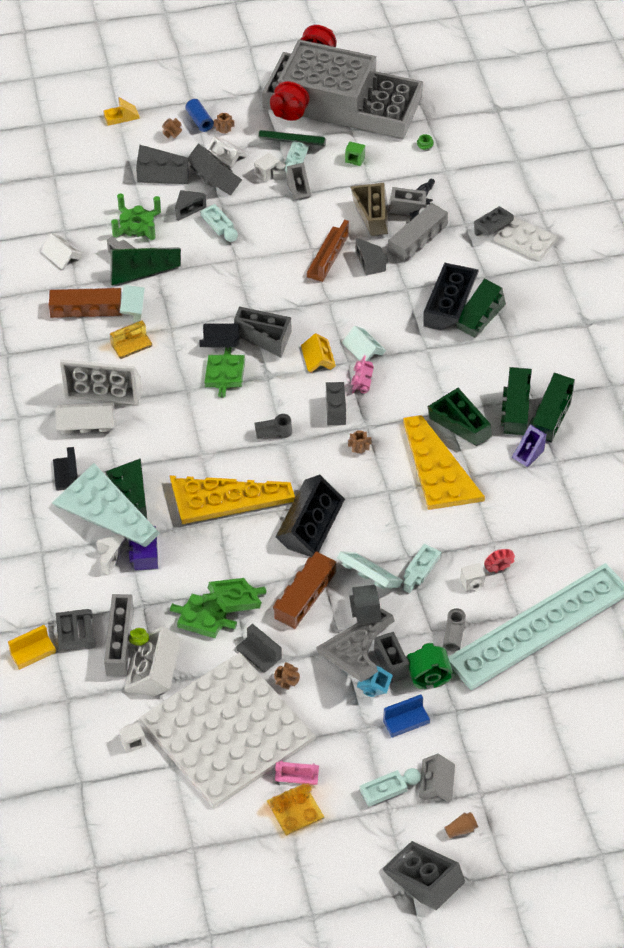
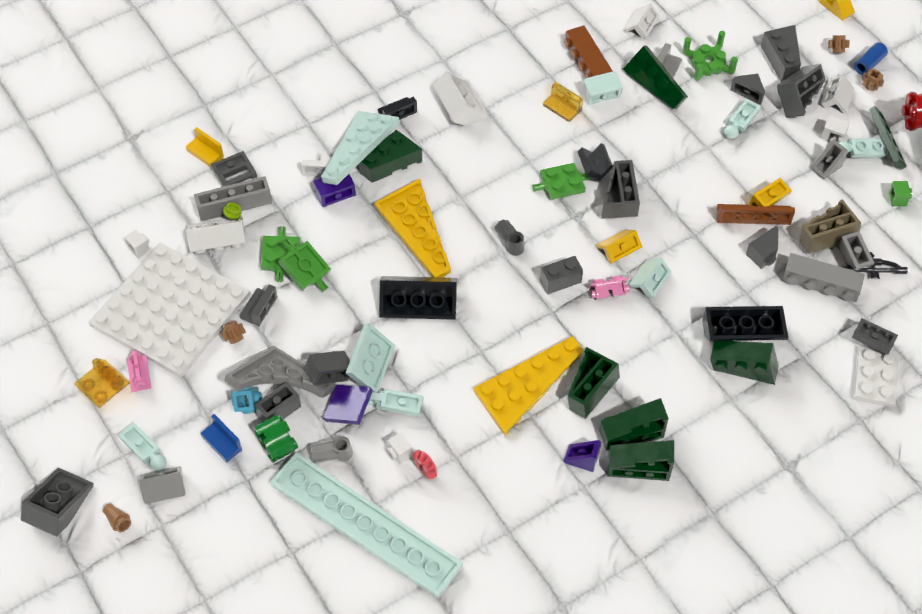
camera: 70 degrees right, 5 degrees up
(101, 382) = (496, 95): white slope -> none
(304, 590) = (331, 317): dark orange brick -> none
(318, 232) = (771, 194): none -> yellow panel
(359, 442) = (524, 308): medium nougat gear -> none
(410, 603) = (347, 404): none -> tile

